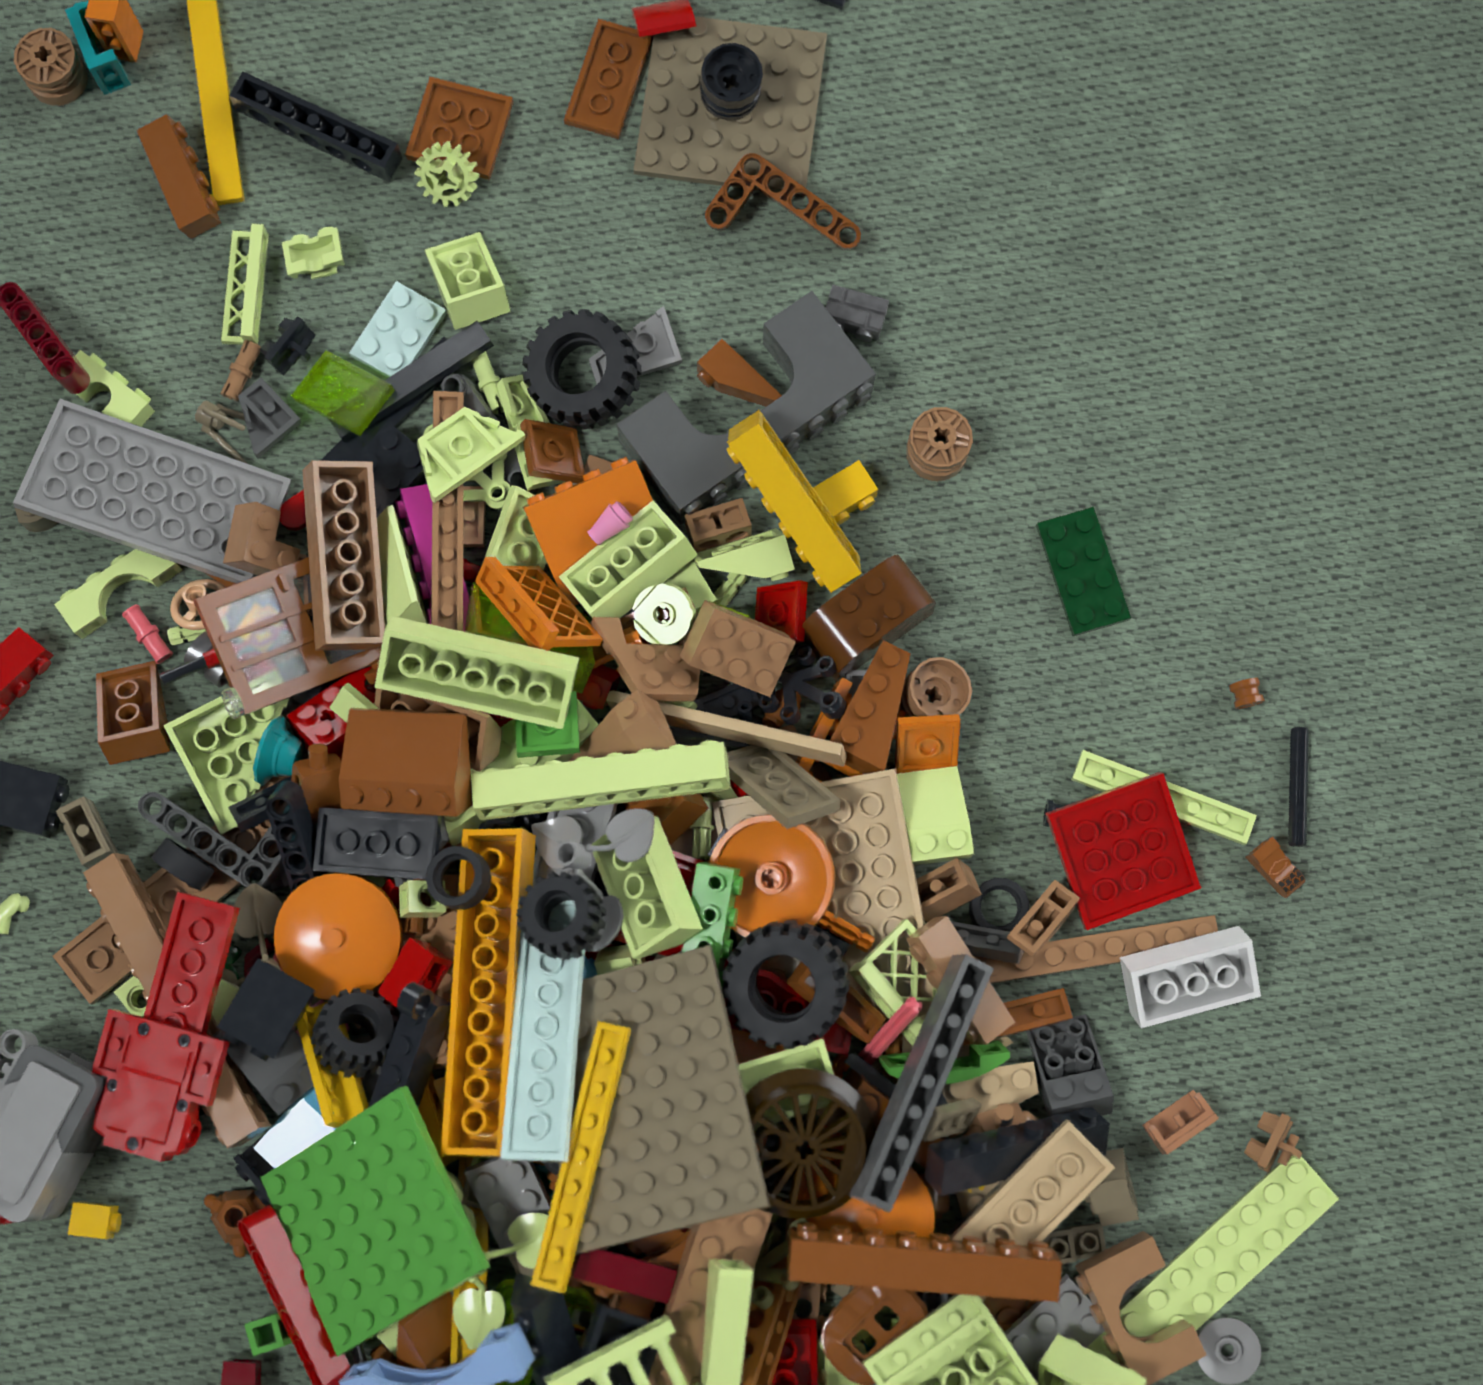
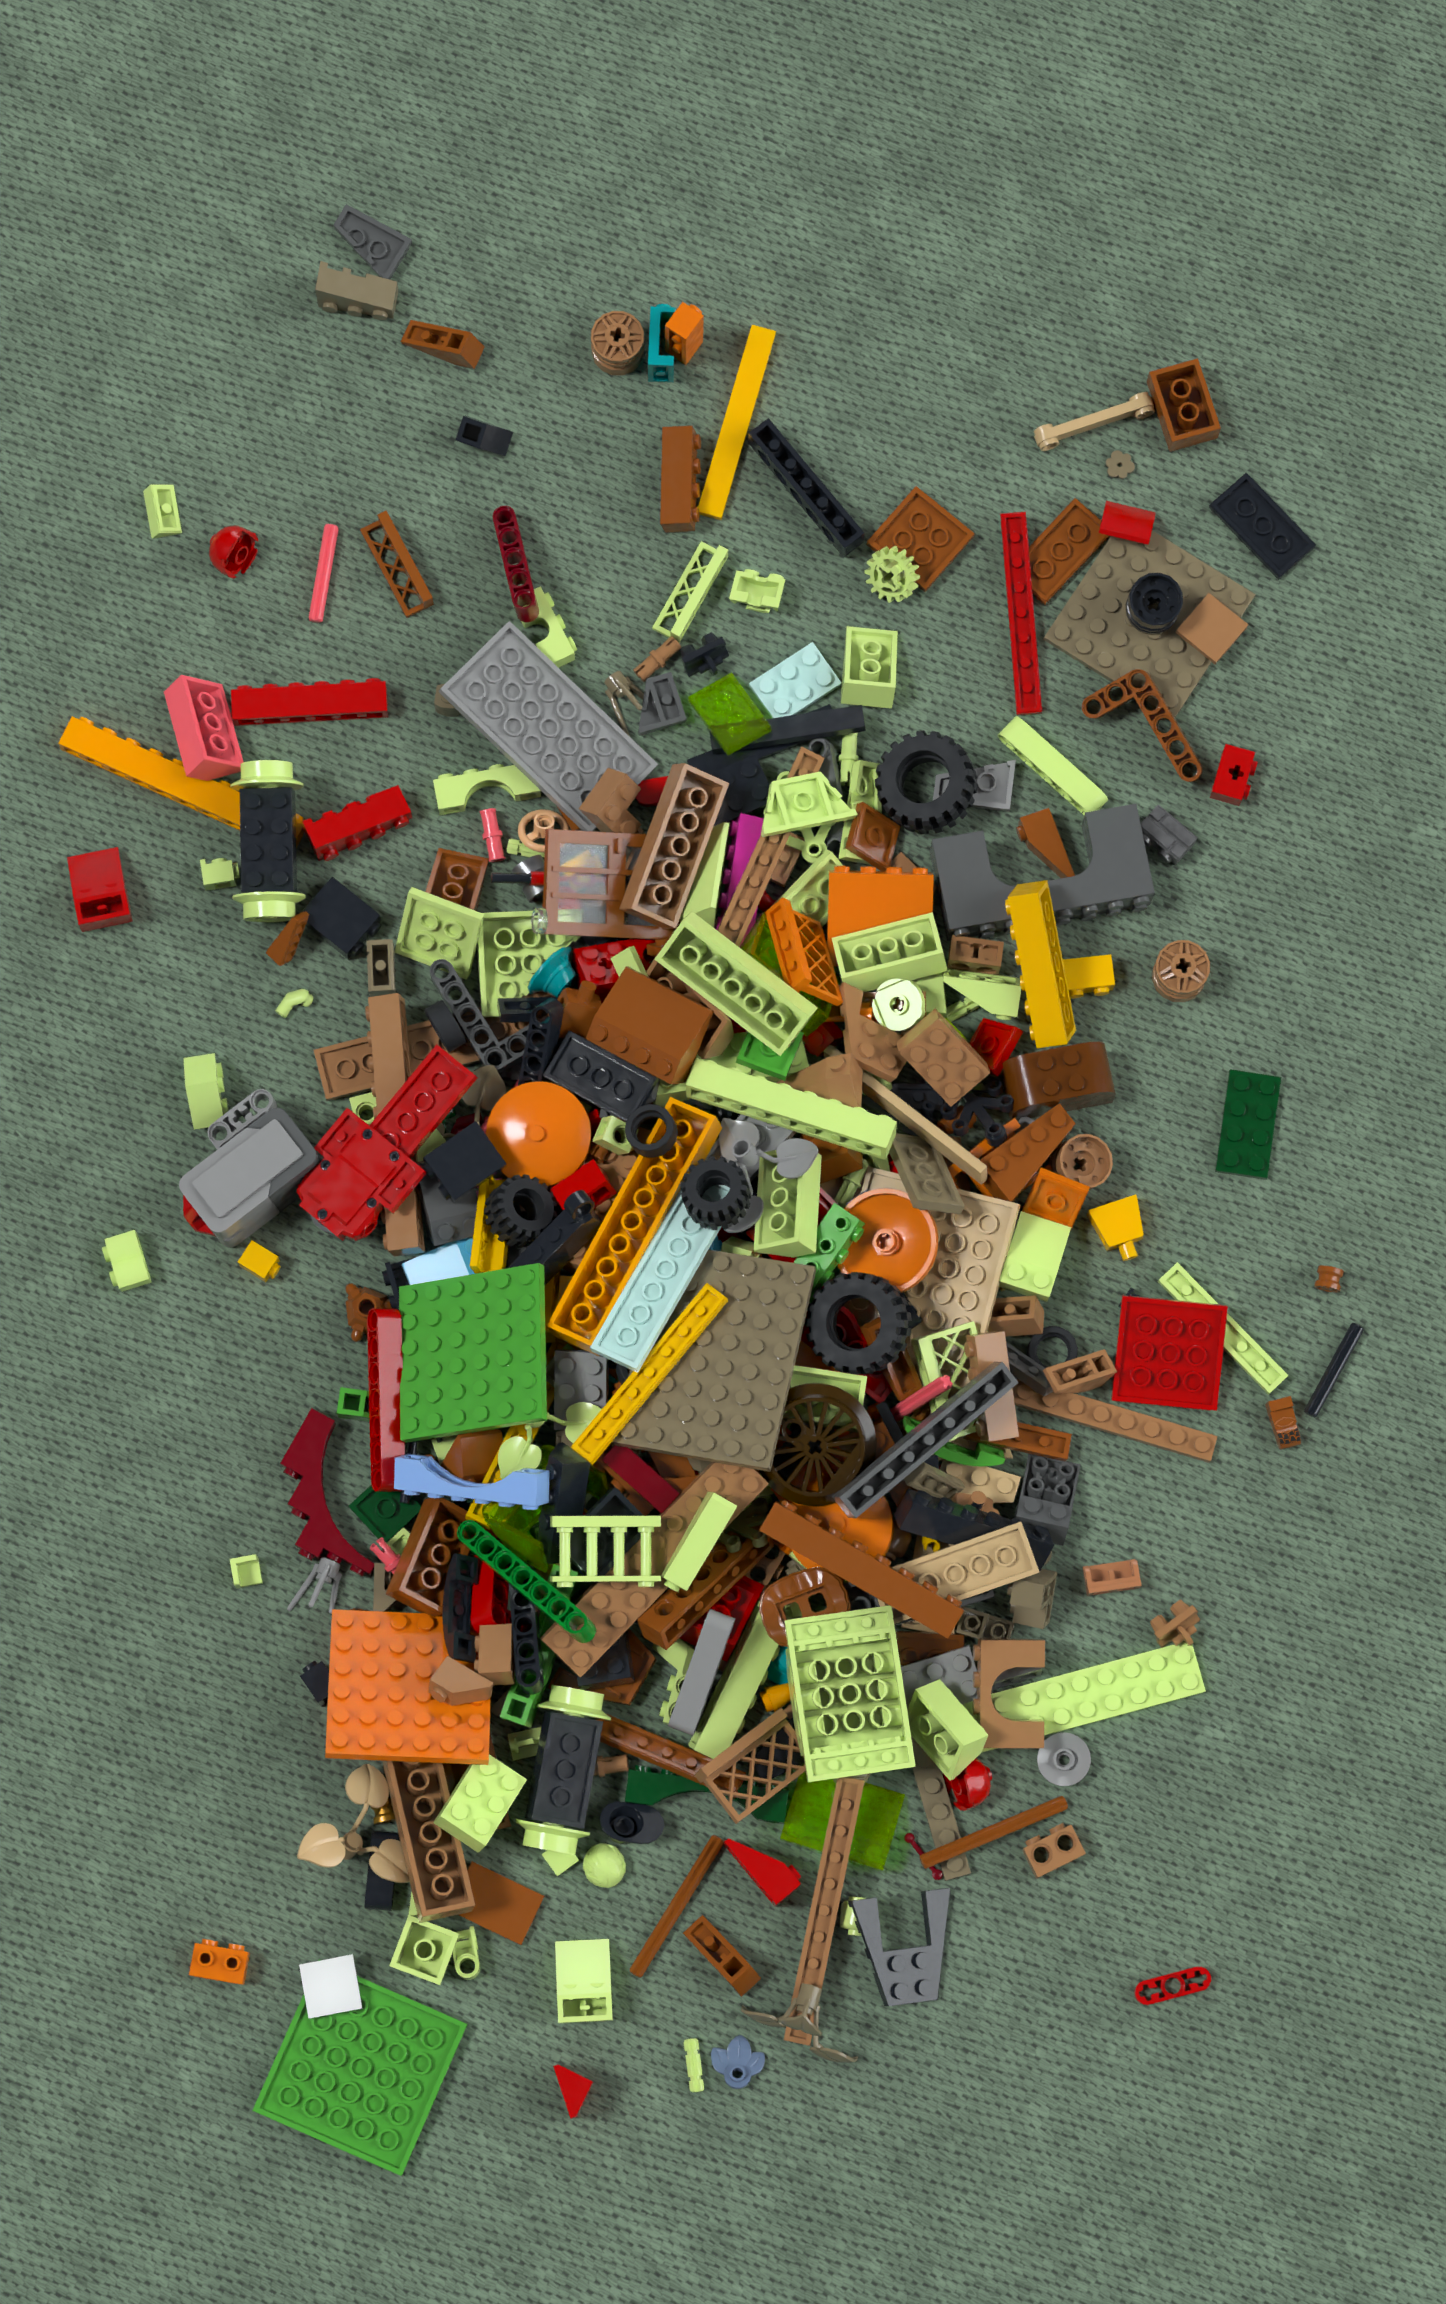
camera: 25 degrees right, 0 degrees up
(131, 762) = (439, 930): none -> yellowish green plate
(598, 156) = (1021, 613): none -> red tile
(611, 522) = (891, 915): bright pink cone -> none
(704, 295) = (1052, 766): none -> yellowish green beam
(800, 84) = (1211, 628): none -> medium nougat tile
(846, 931) = (923, 1309): orange axle -> none
(894, 238) = (1224, 787): none -> red brick
(1003, 740) = (1118, 1225): none -> yellow torso
(1190, 976) = (1172, 1470): white brick -> none

